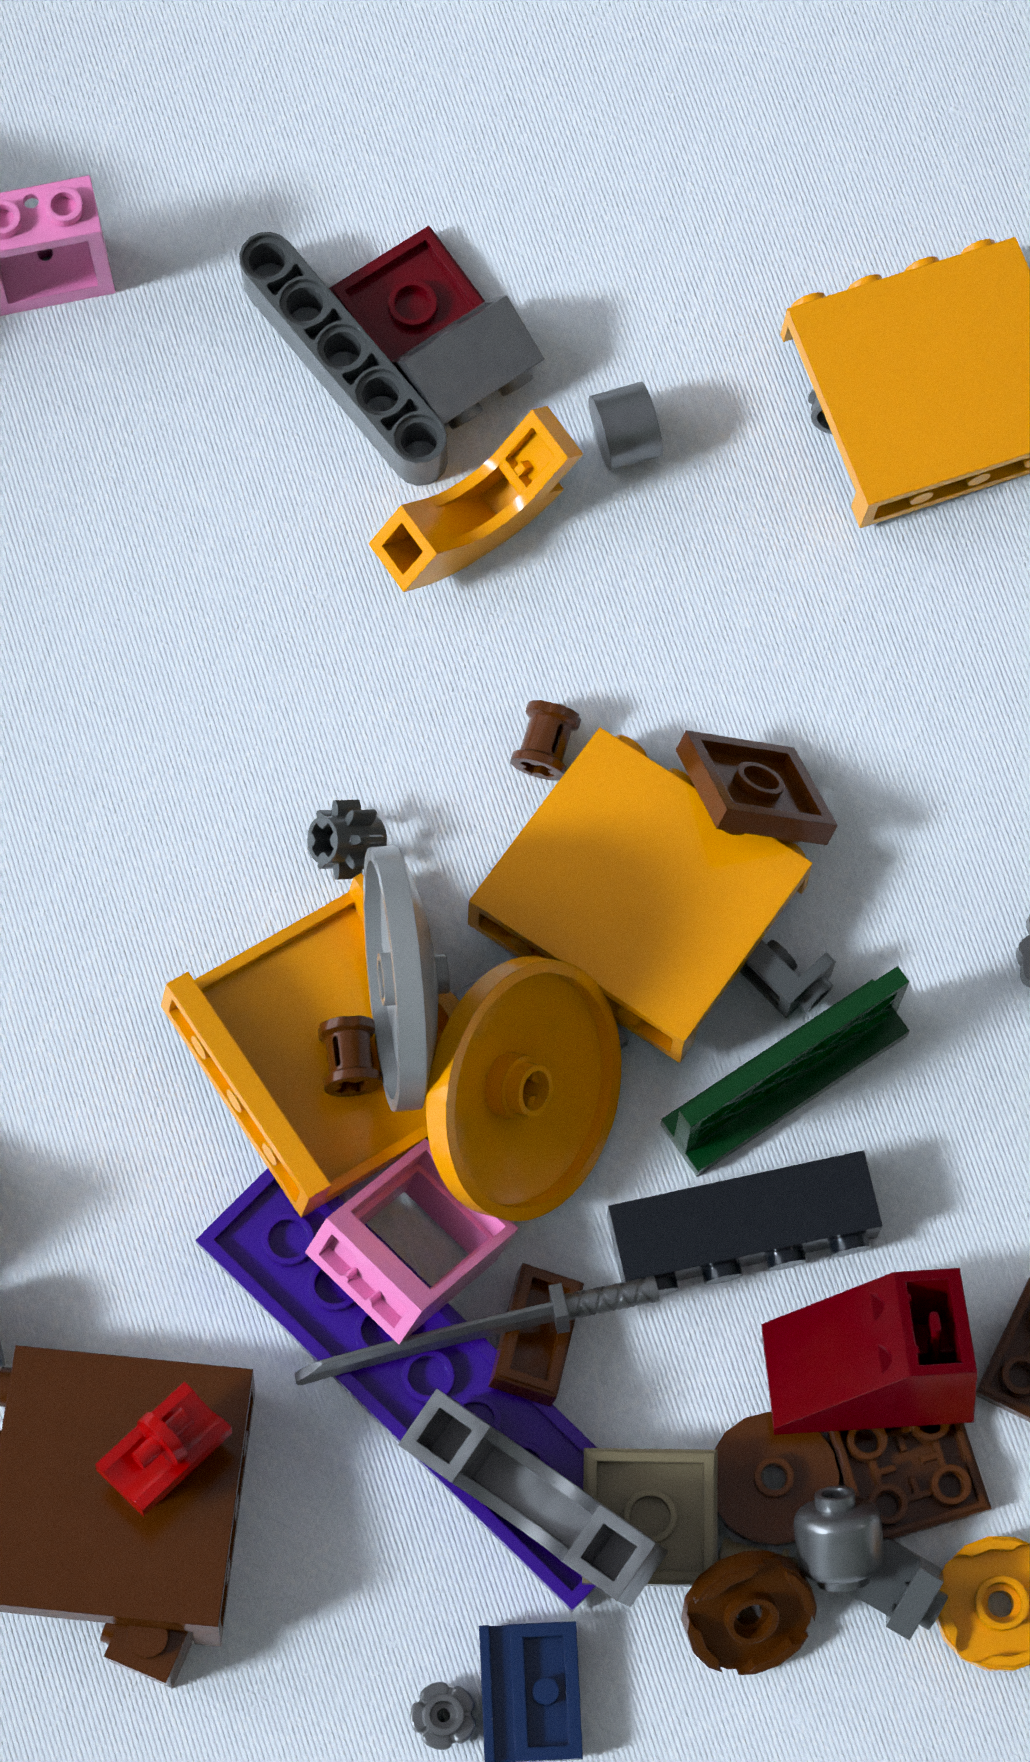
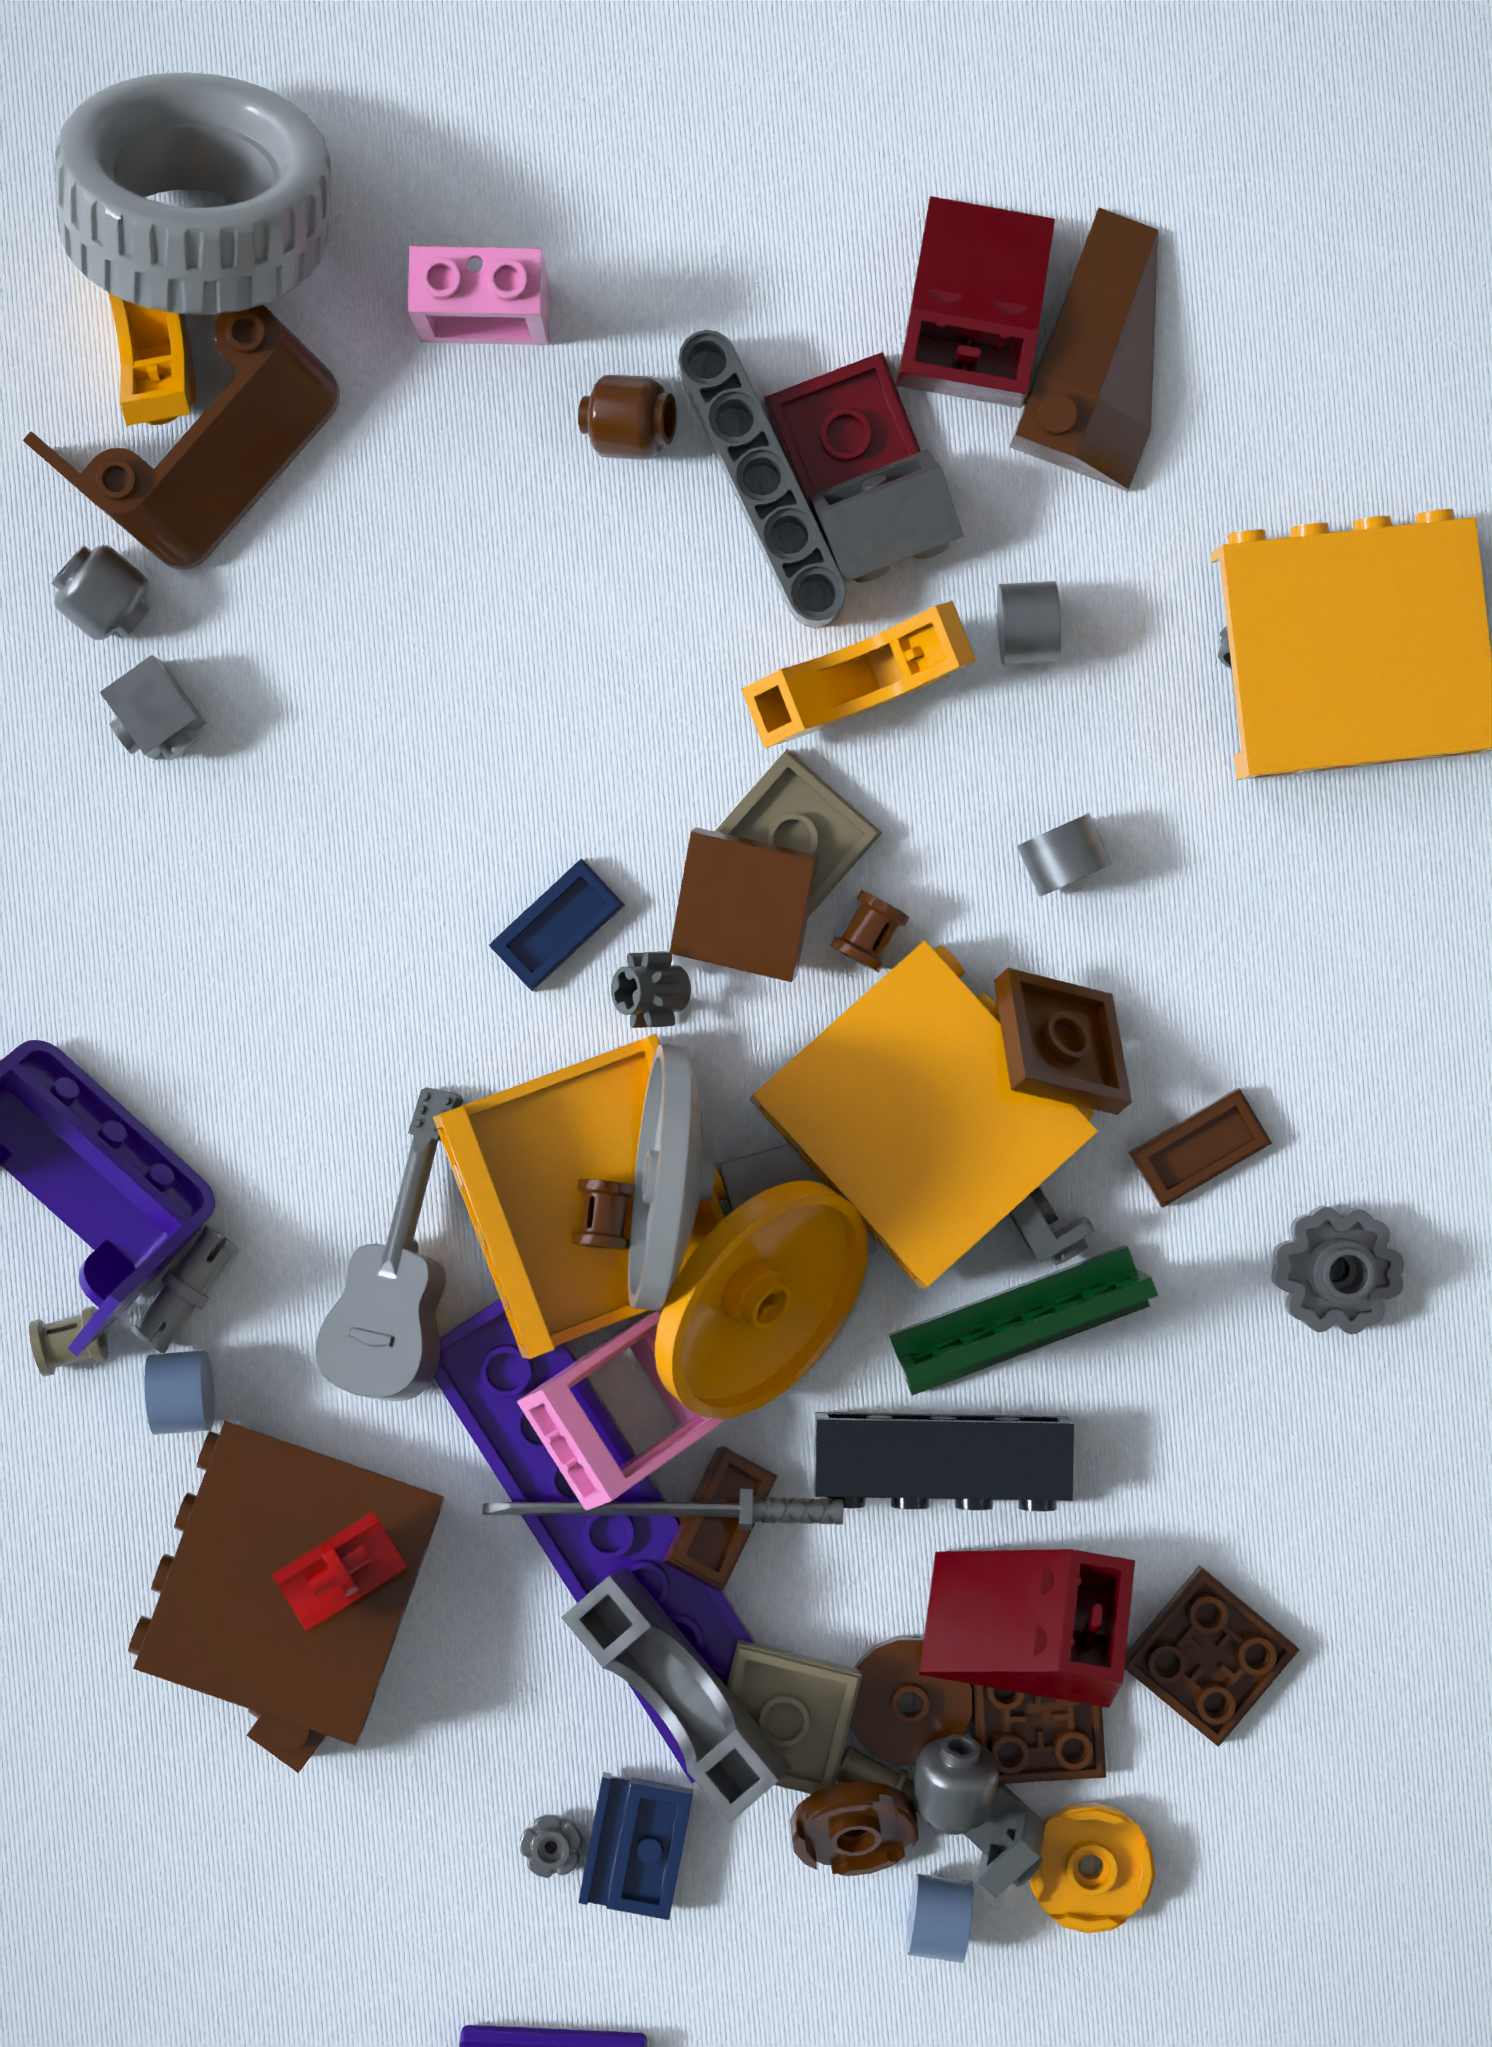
camera: 15 degrees right, 15 degrees up
(157, 1221) = (384, 1326): none -> piece
(205, 330) = (628, 417): none -> reddish brown head
(242, 807) = (556, 925): none -> dark blue tile
(418, 737) = (744, 904): none -> reddish brown tile
(451, 677) = (804, 814): none -> dark tan tile
(505, 166) = (976, 302): none -> dark red slope
(631, 199) = (1096, 374): none -> reddish brown wedge
(714, 625) = (1064, 855): none -> flat silver piece
(860, 1689) = (939, 1918): none -> sand blue piece
(917, 873) = (1200, 1147): none -> reddish brown tile

